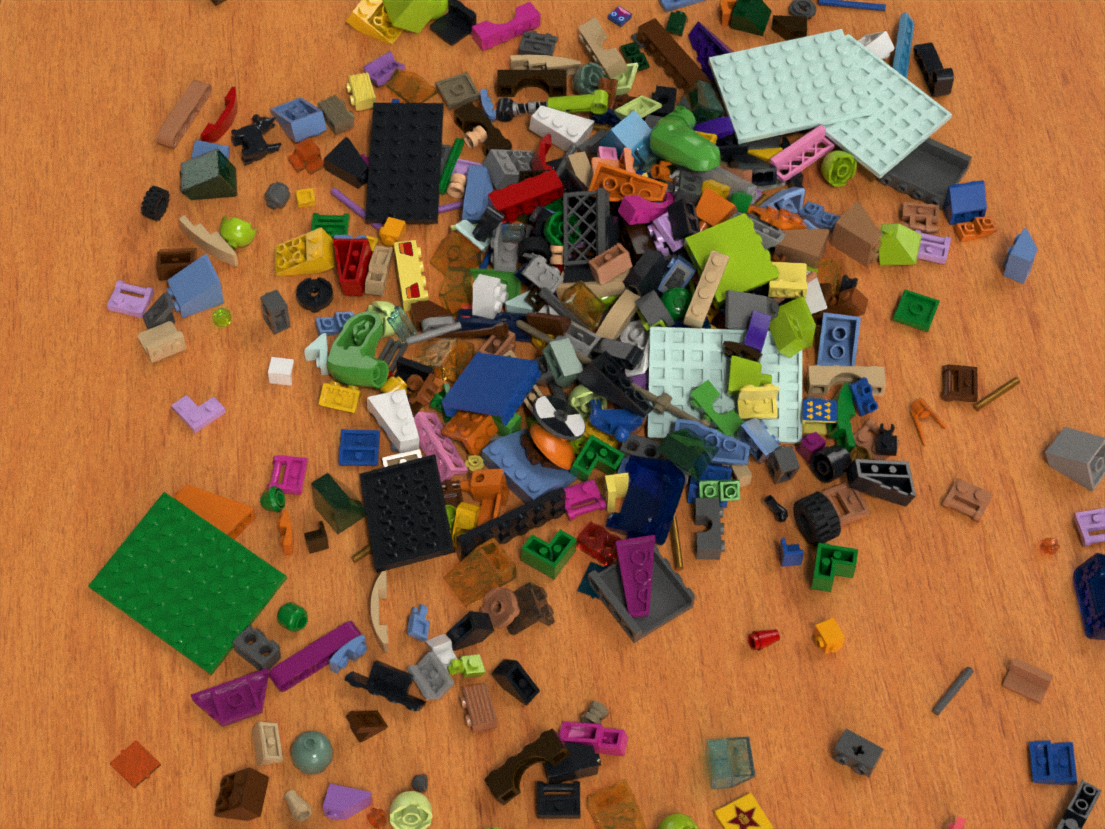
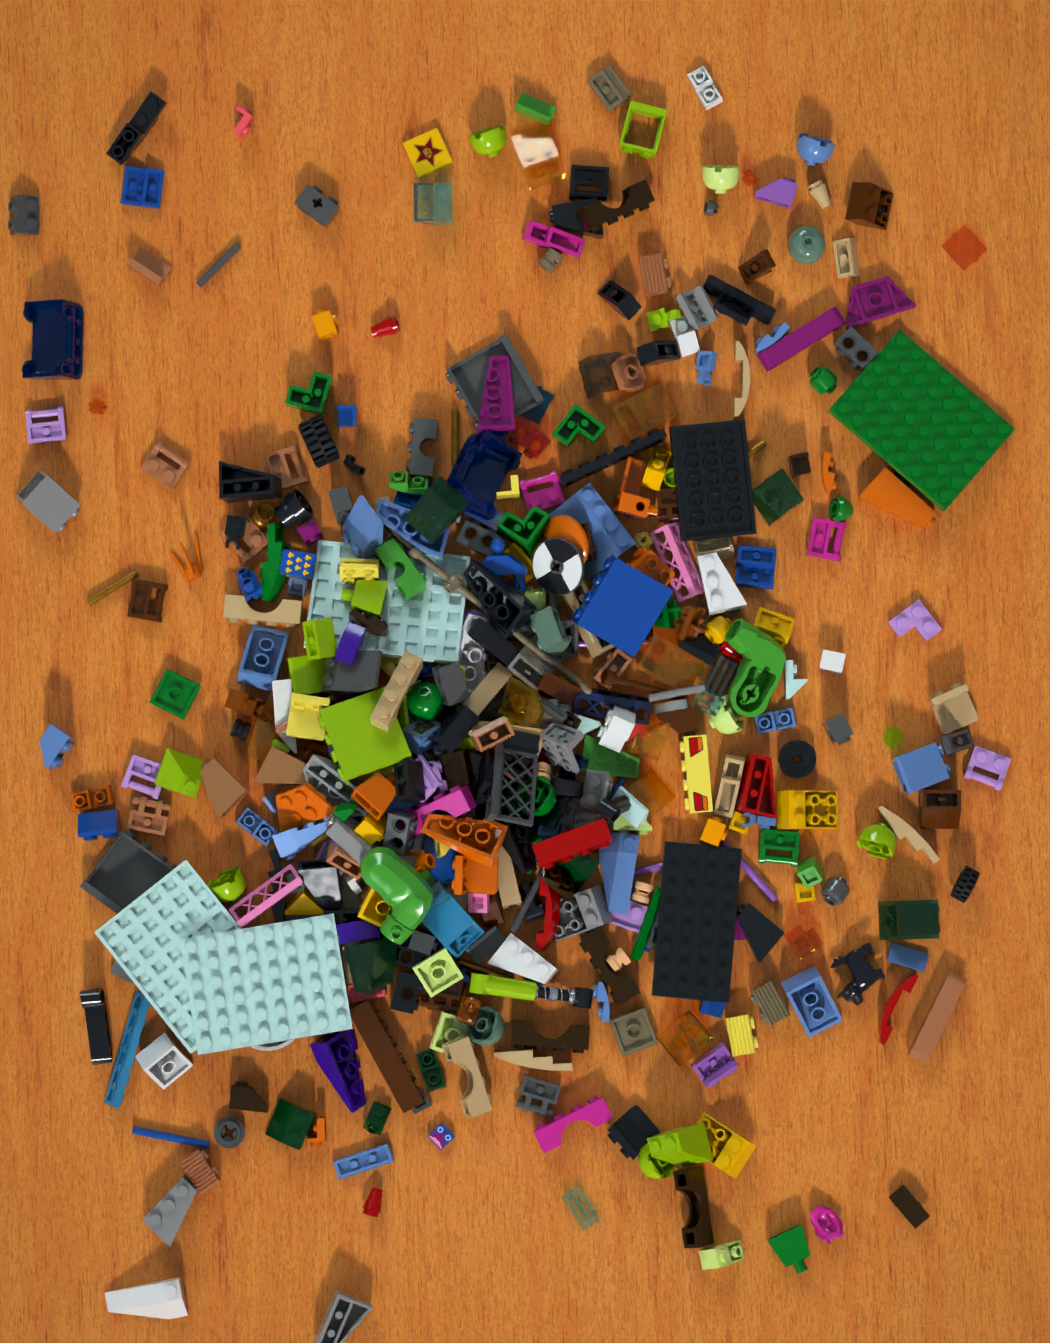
camera: 175 degrees left, 30 degrees up
(300, 208) = (810, 872): none -> bright green panel

